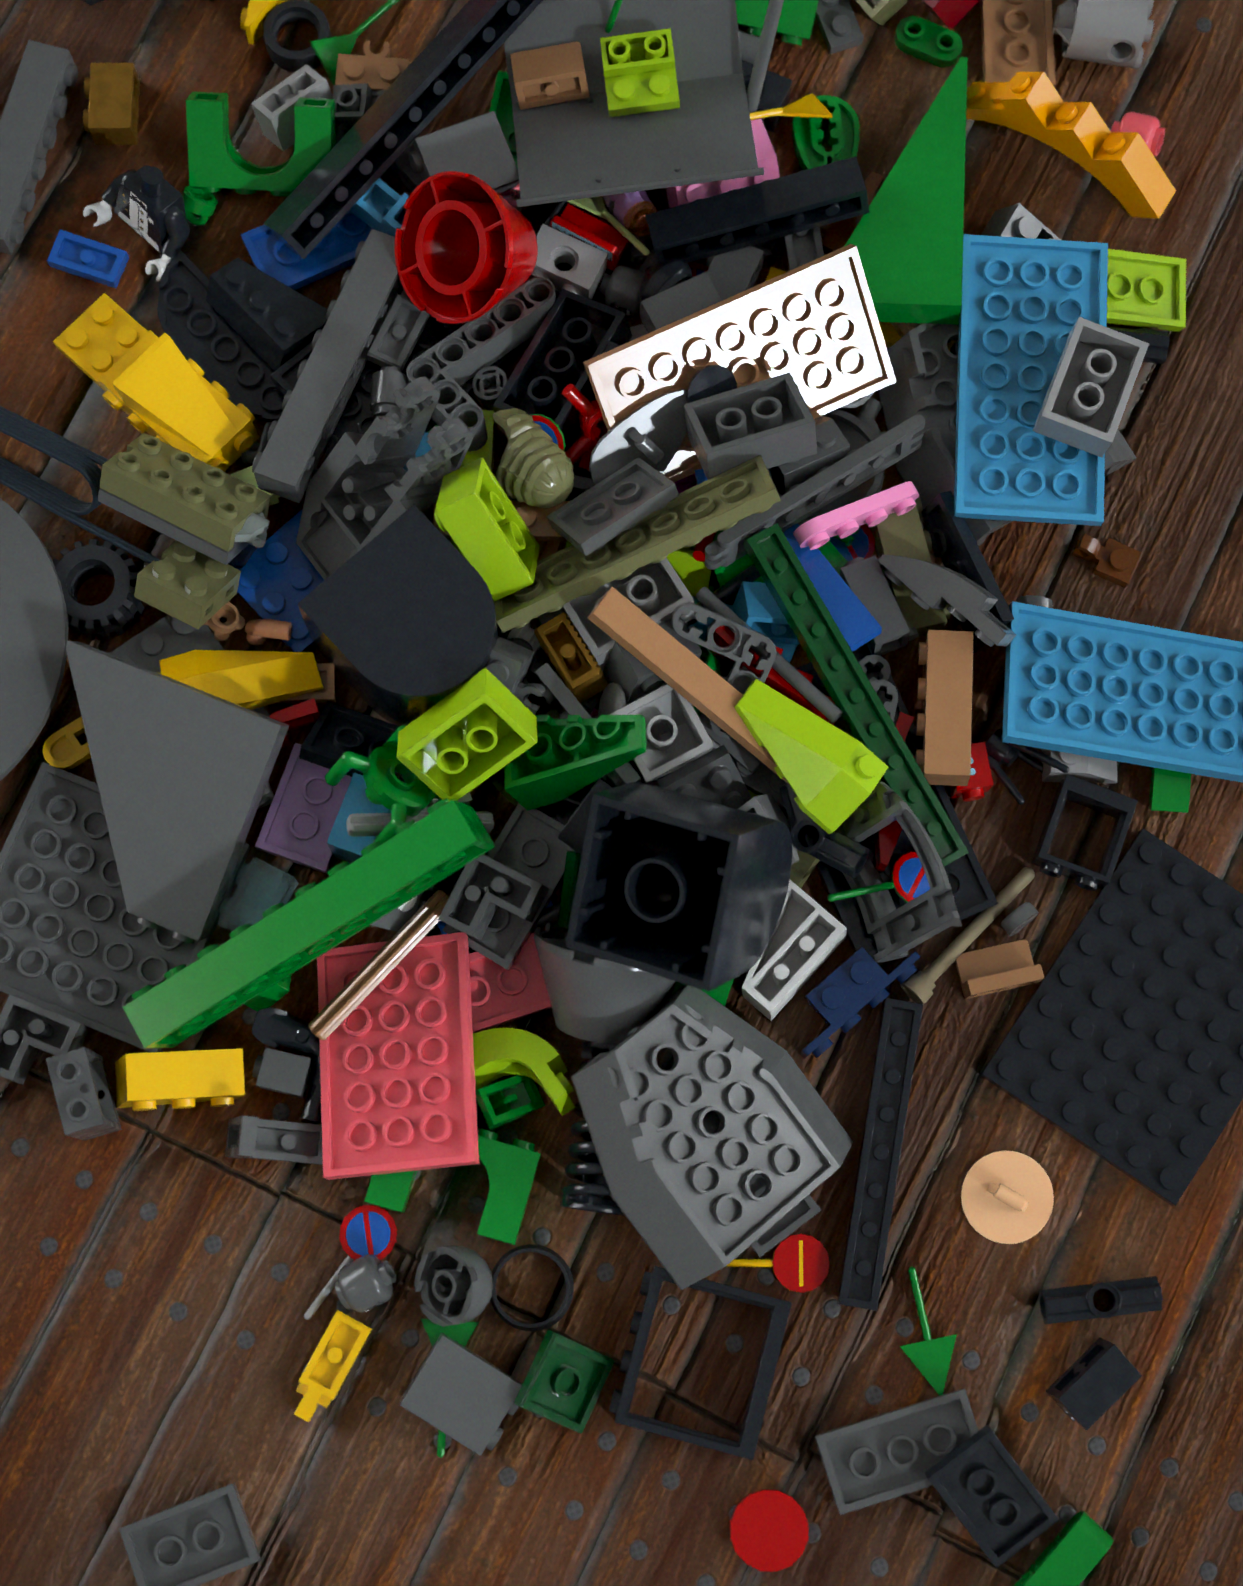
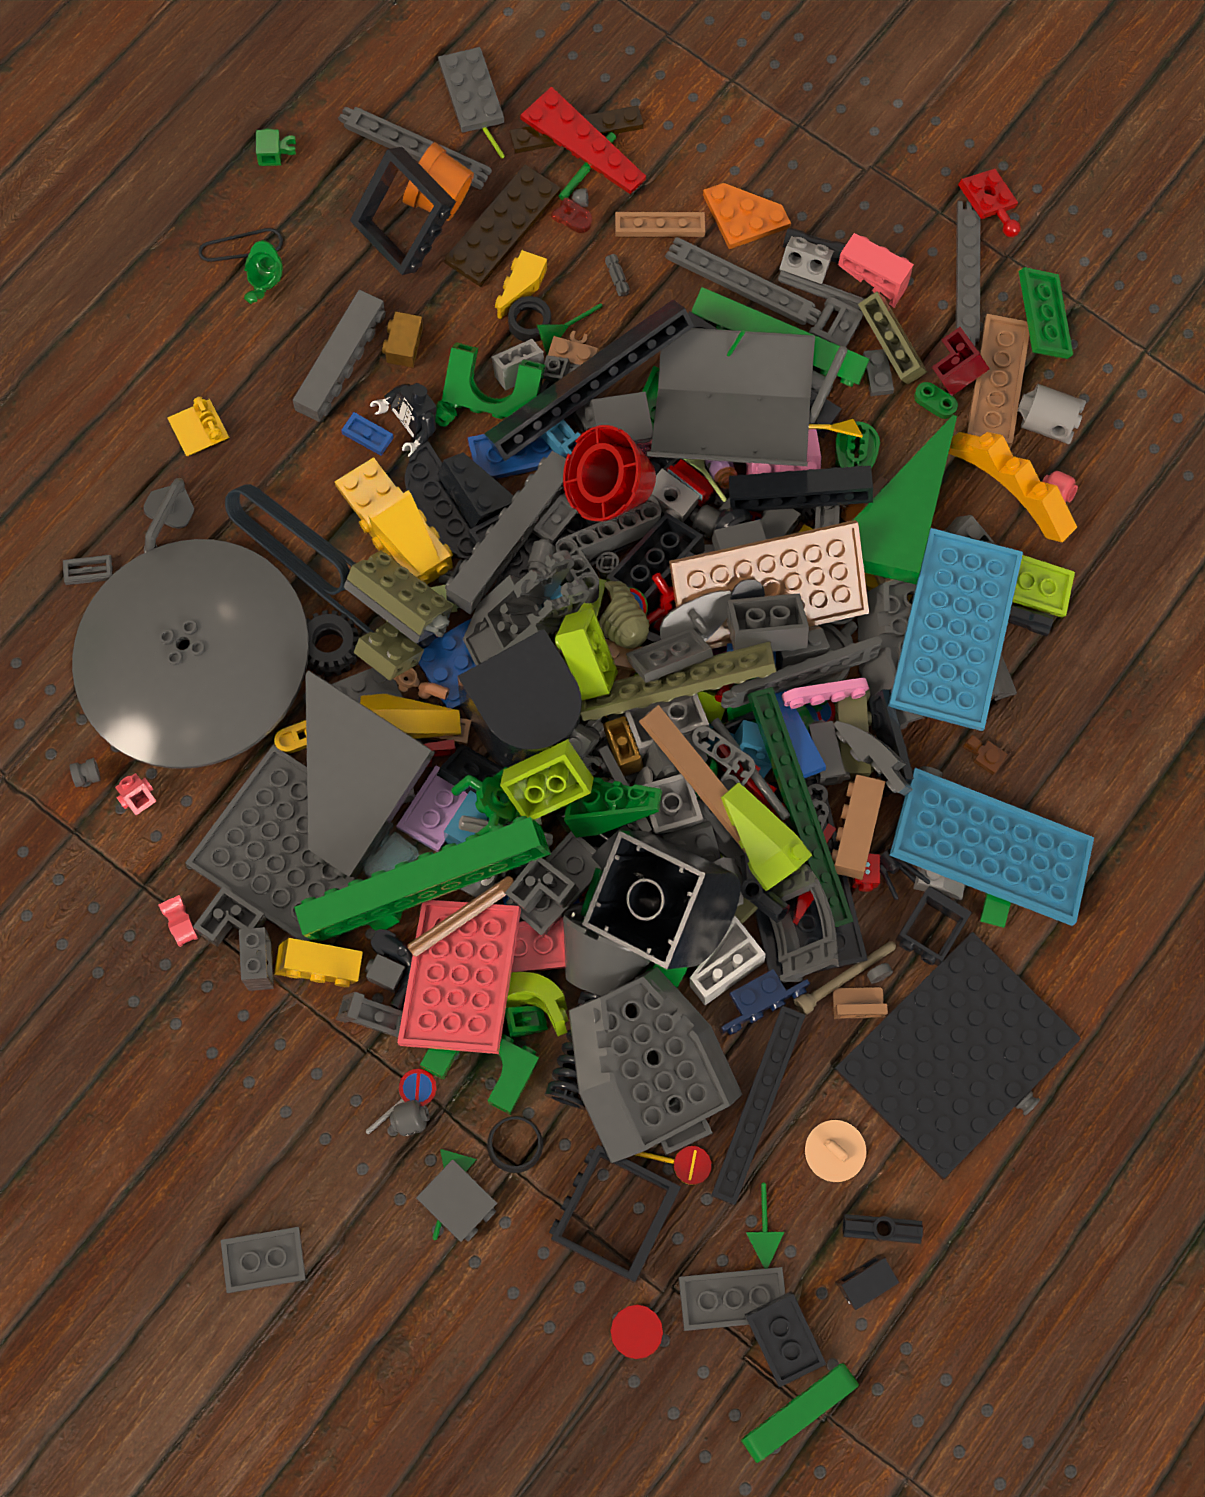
camera: 10 degrees right, 5 degrees down
(330, 1363) = (376, 1164): yellow hinge -> none
(453, 1285) = (466, 1129): dark grey cylinder -> none
(549, 75) = (685, 375): medium nougat panel -> none
(564, 1381) = (524, 1207): dark green tile -> none
(640, 72) = (743, 385): lime brick -> none
(907, 880) = (810, 931): piece -> none
(1090, 387) = (991, 641): light grey brick -> none

